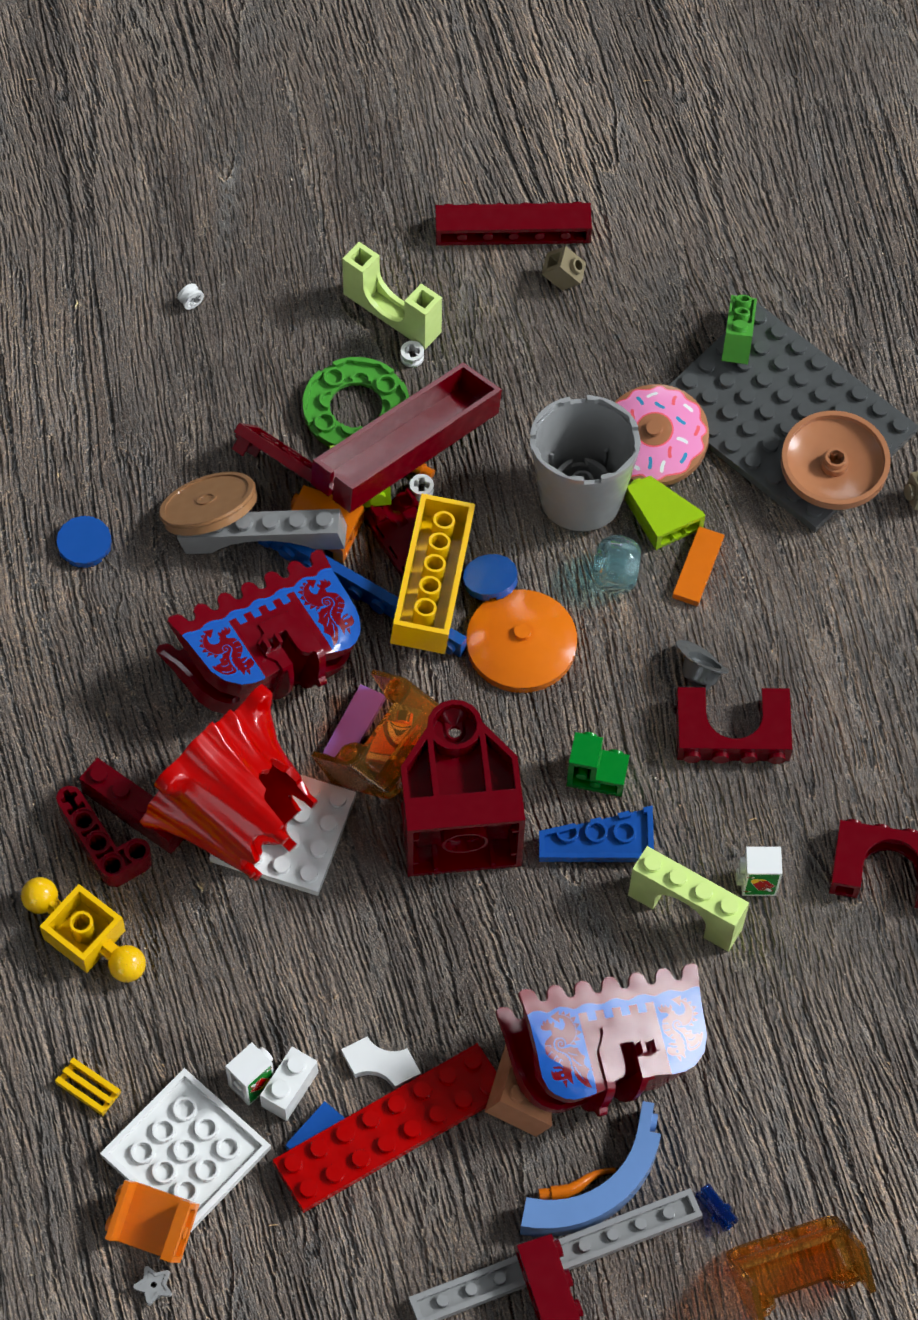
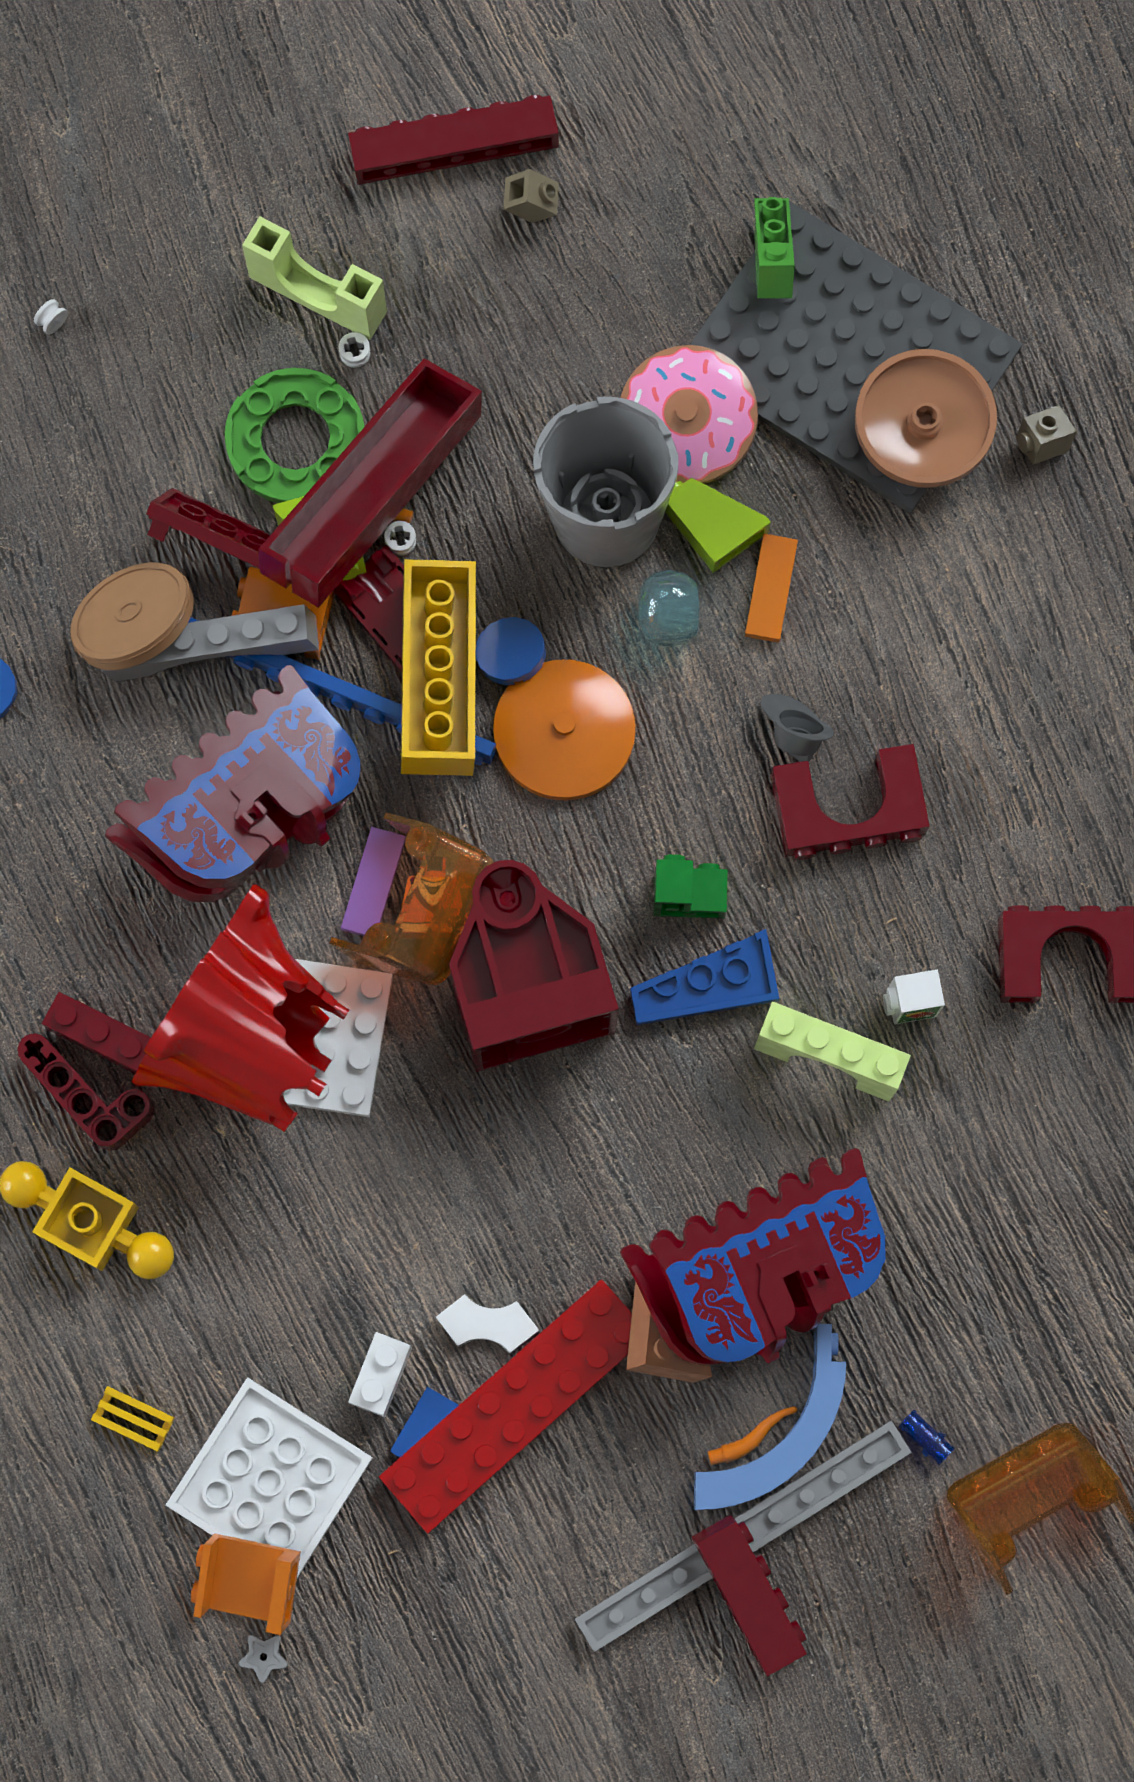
camera: 10 degrees left, 15 degrees up
(250, 1072) = (332, 1372): white brick -> none

